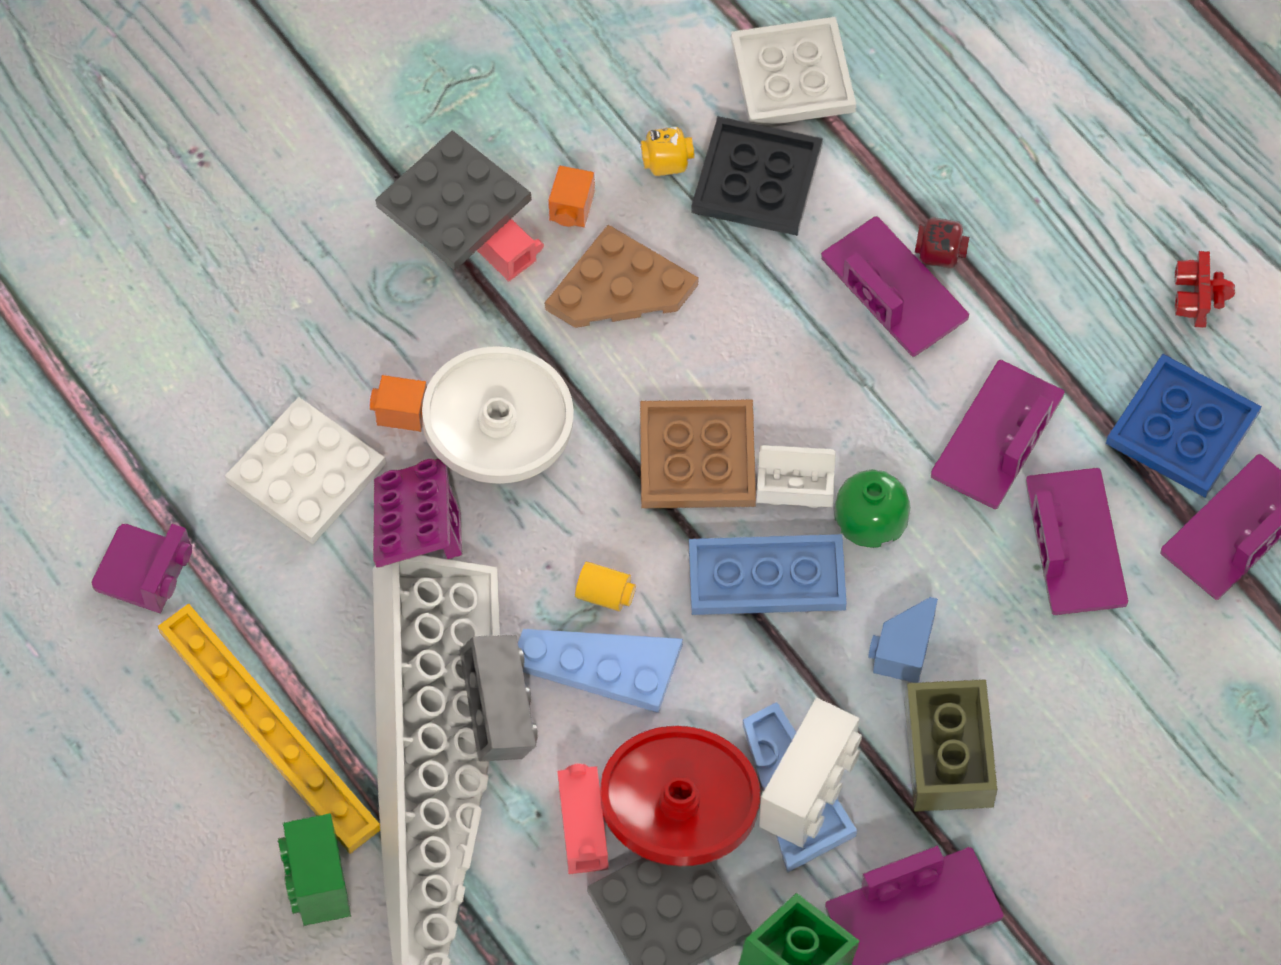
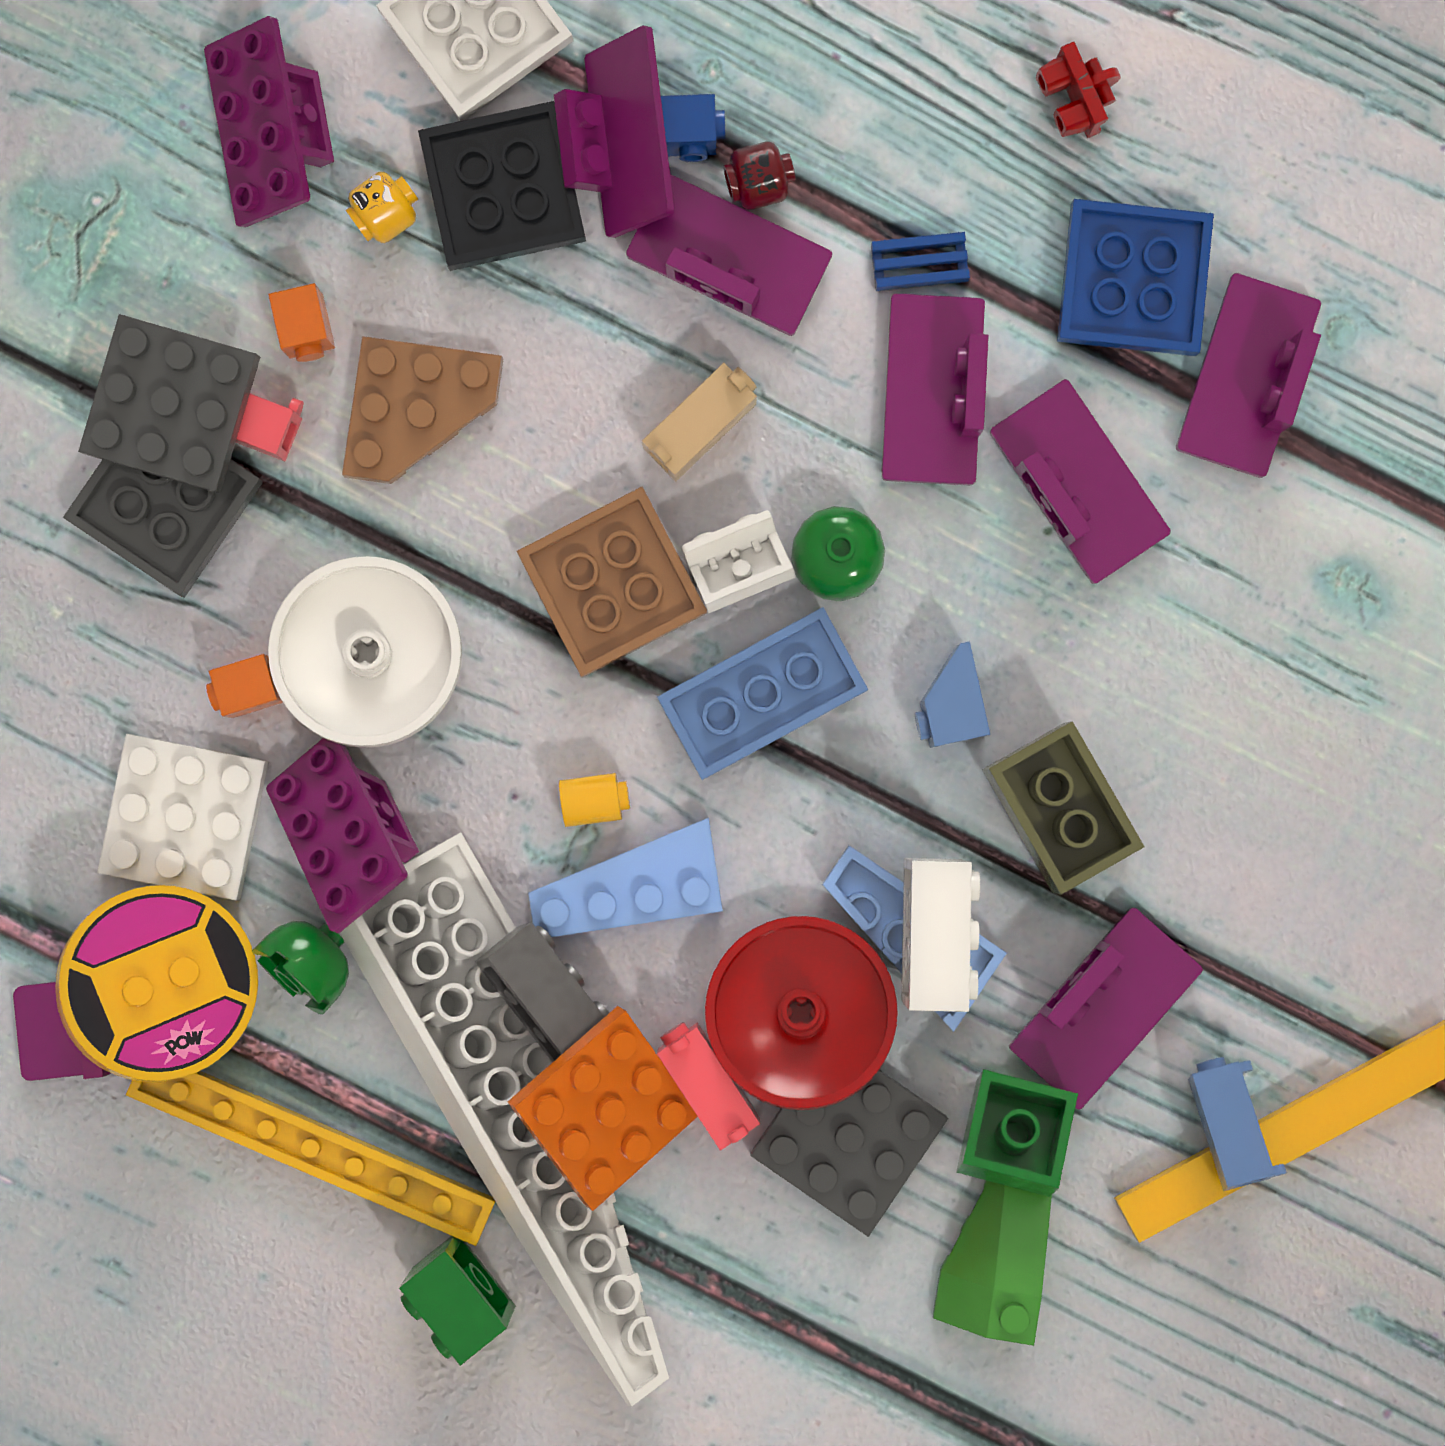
camera: 30 degrees left, 25 degrees up
(227, 555) = (156, 983): none -> brick
(336, 596) = (306, 962): none -> green cylinder
(404, 275) = (160, 522): none -> dark grey plate
(498, 787) = (603, 1108): none -> orange plate
(617, 68) = (266, 120): none -> magenta bracket
(817, 378) = (701, 420): none -> tan brick
(852, 177) = (616, 134): none -> magenta bracket
(908, 193) = (692, 126): none -> blue brick
(1032, 344) = (914, 244): none -> blue tile

